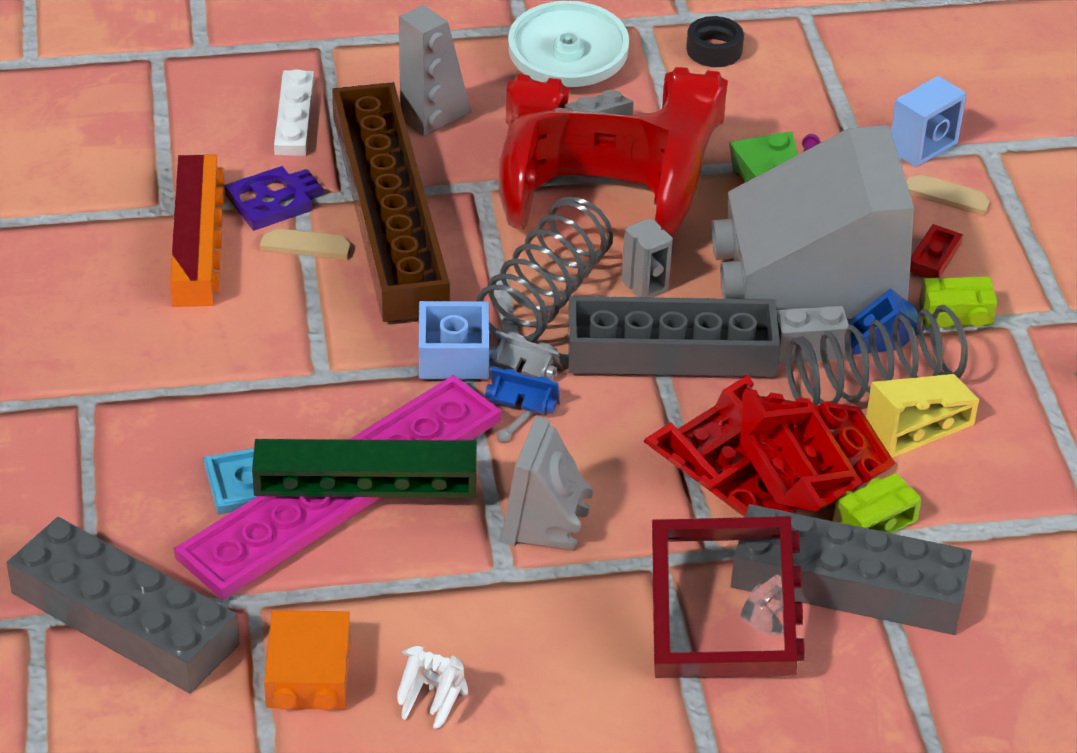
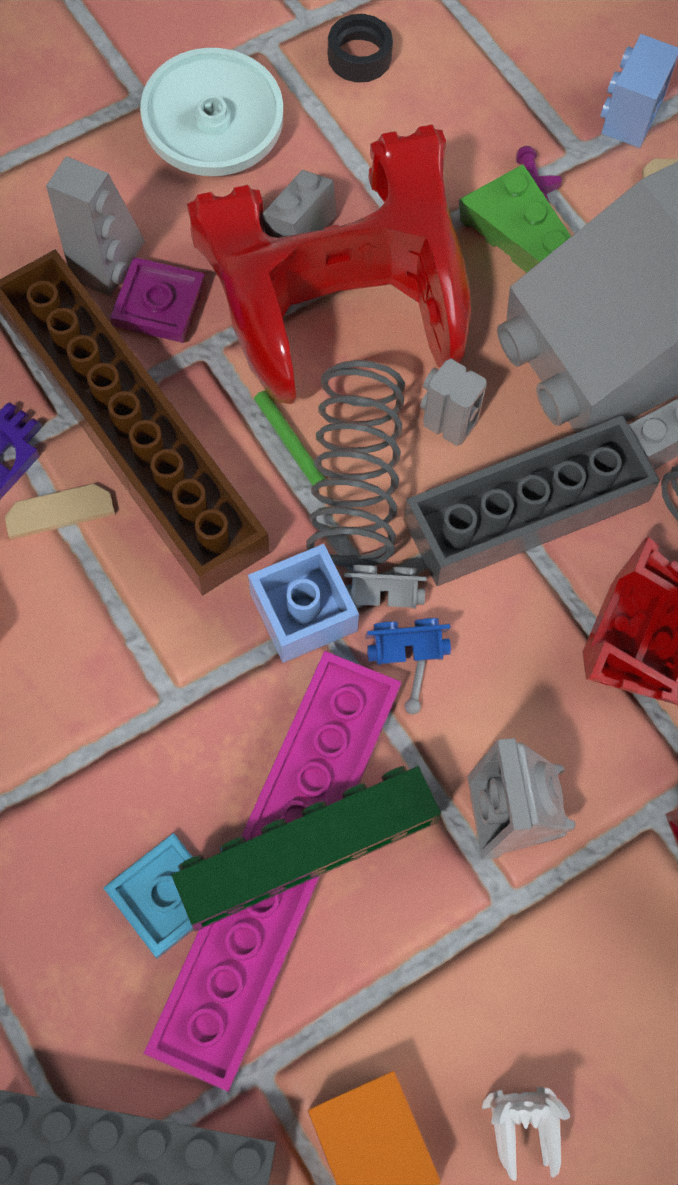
camera: 25 degrees left, 25 degrees up
(457, 143) = (158, 299): none -> magenta plate
(507, 249) = (288, 437): none -> bright green bar

